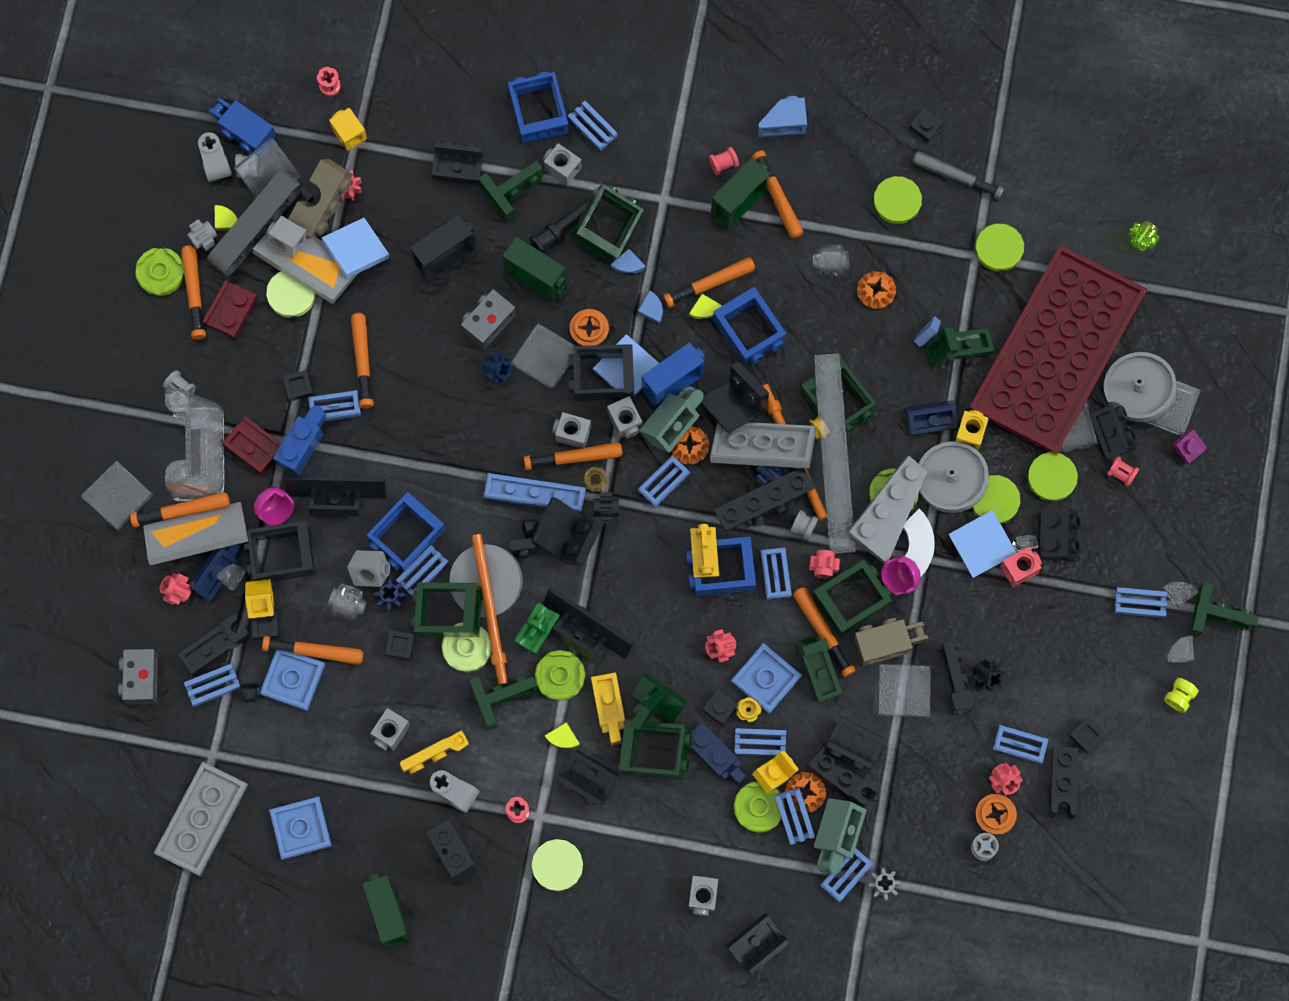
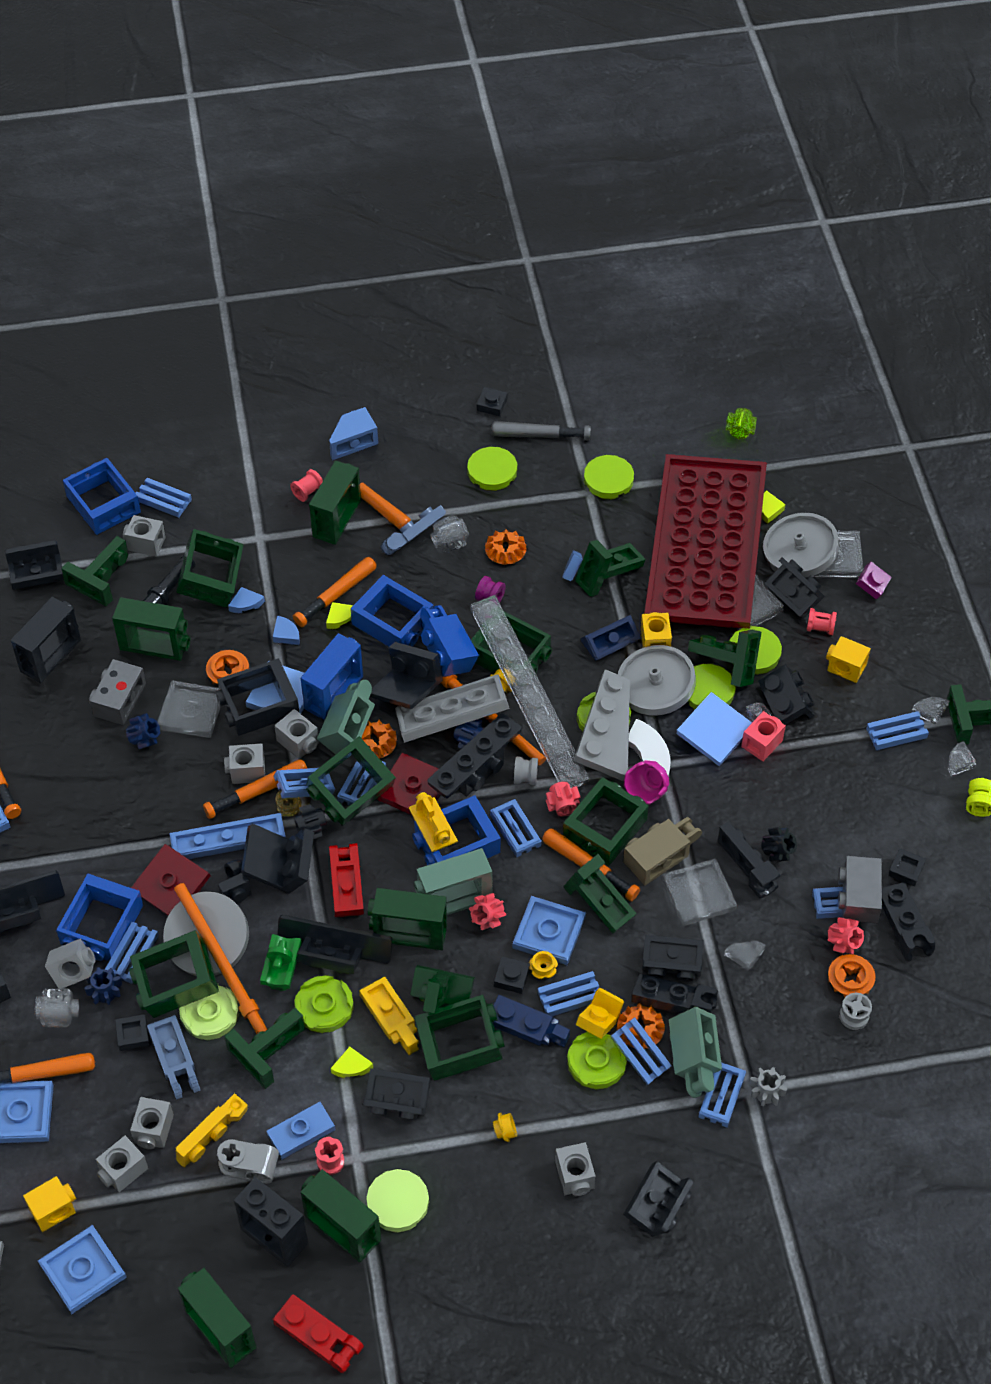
camera: 20 degrees left, 20 degrees down
(292, 767) = (50, 1203): none -> yellow brick
(366, 759) = (124, 1152): none -> light grey brick
(426, 675) = (173, 1053): none -> sand blue hinge
(458, 947) = (317, 1333): none -> red plate
(473, 516) = (164, 874): none -> dark red plate
(503, 778) = (301, 1130): none -> medium blue plate
(506, 865) = (340, 1215): none -> dark green window
(595, 466) = (296, 789): none -> medium blue tile
(617, 572) = (346, 881): none -> red plate
(652, 631) = (409, 918): none -> dark green window
(663, 837) = (505, 1127): none -> yellow plate
(674, 476) = (369, 762): none -> dark green window
(700, 614) = (457, 879): none -> sand green window
(701, 498) = (410, 781): none -> dark red plate
(784, 376) = (448, 638): none -> blue brick
(799, 244) = (412, 530): none -> sand blue hinge
(843, 333) = (488, 588): none -> magenta wheel
(918, 759) = (745, 953): none -> clear tile
(1031, 482) = (742, 654): none -> dark green bracket
(1036, 744) = (861, 889): none -> flat silver brick
(1128, 518) = (848, 659): none -> yellow brick
(1132, 334) = (771, 507): none -> neon yellow tile

